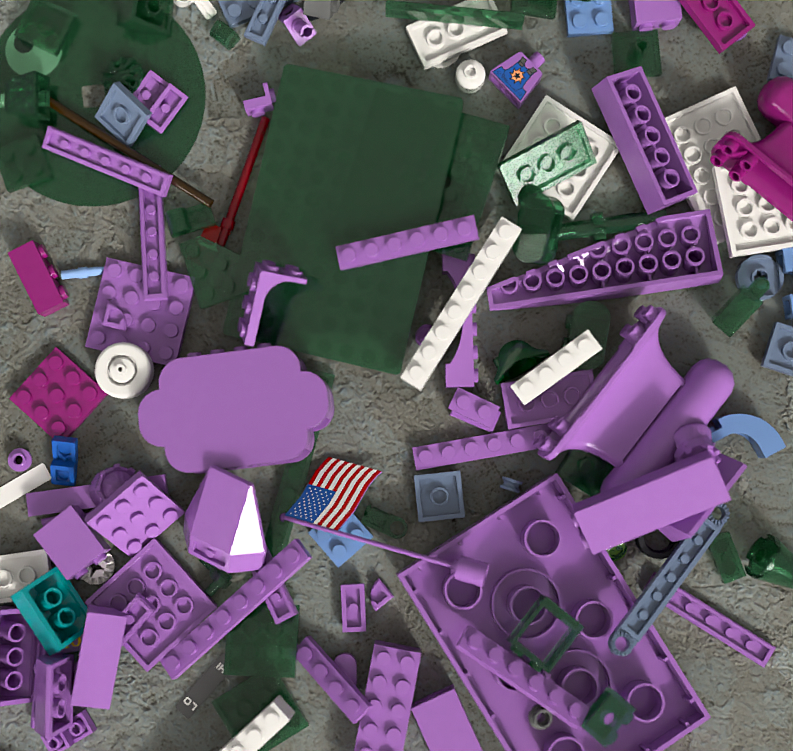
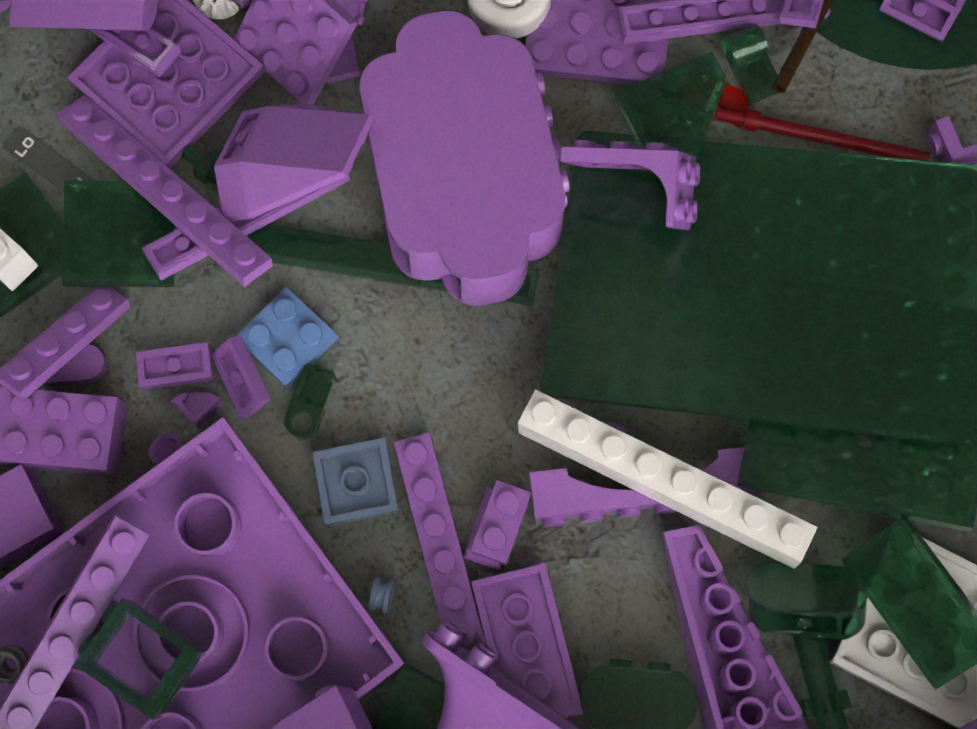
camera: 95 degrees right, 10 degrees down
(333, 498) = (338, 317): flag -> none
(365, 565) = (240, 377): none -> medium lavender plate
(407, 242) = (755, 384): medium lavender plate -> none
(408, 615) = (164, 447): none -> medium lavender piece
(517, 358) = (585, 584): dark green hat -> none
(556, 367) = (578, 645): white brick -> none

